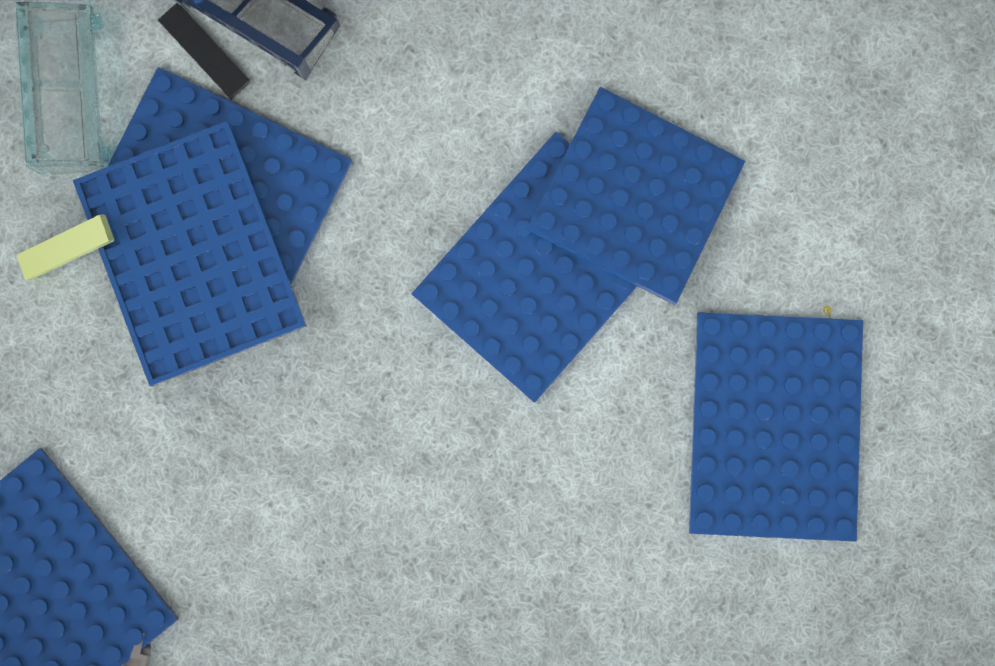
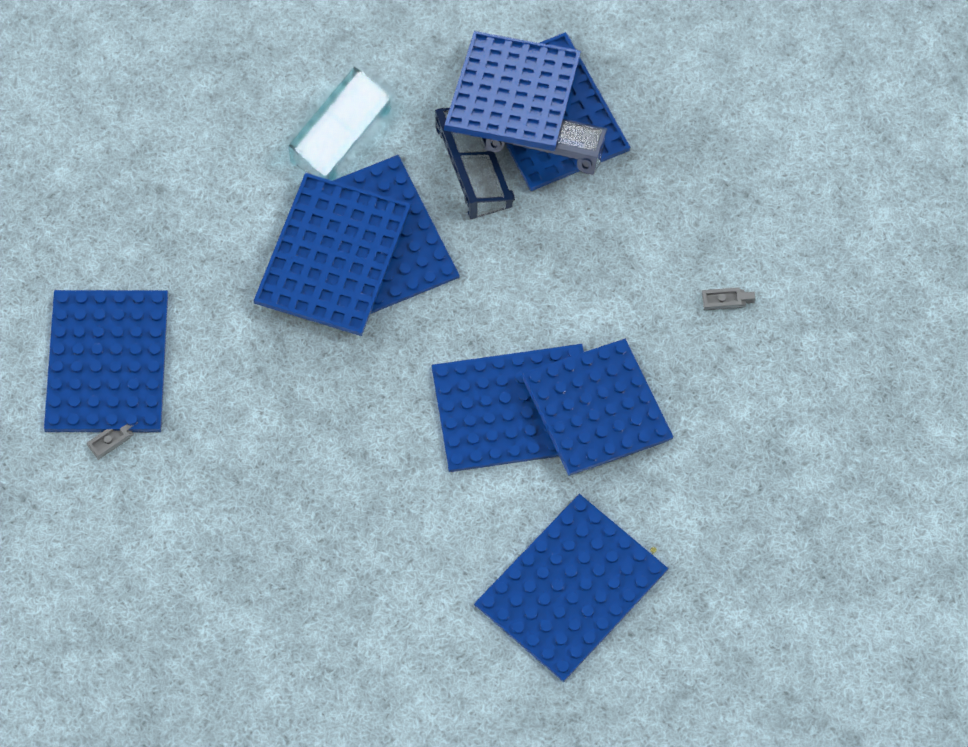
camera: 30 degrees right, 20 degrees down
(65, 247) = (271, 202): yellowish green tile -> none
(204, 51) = (429, 165): black tile -> none

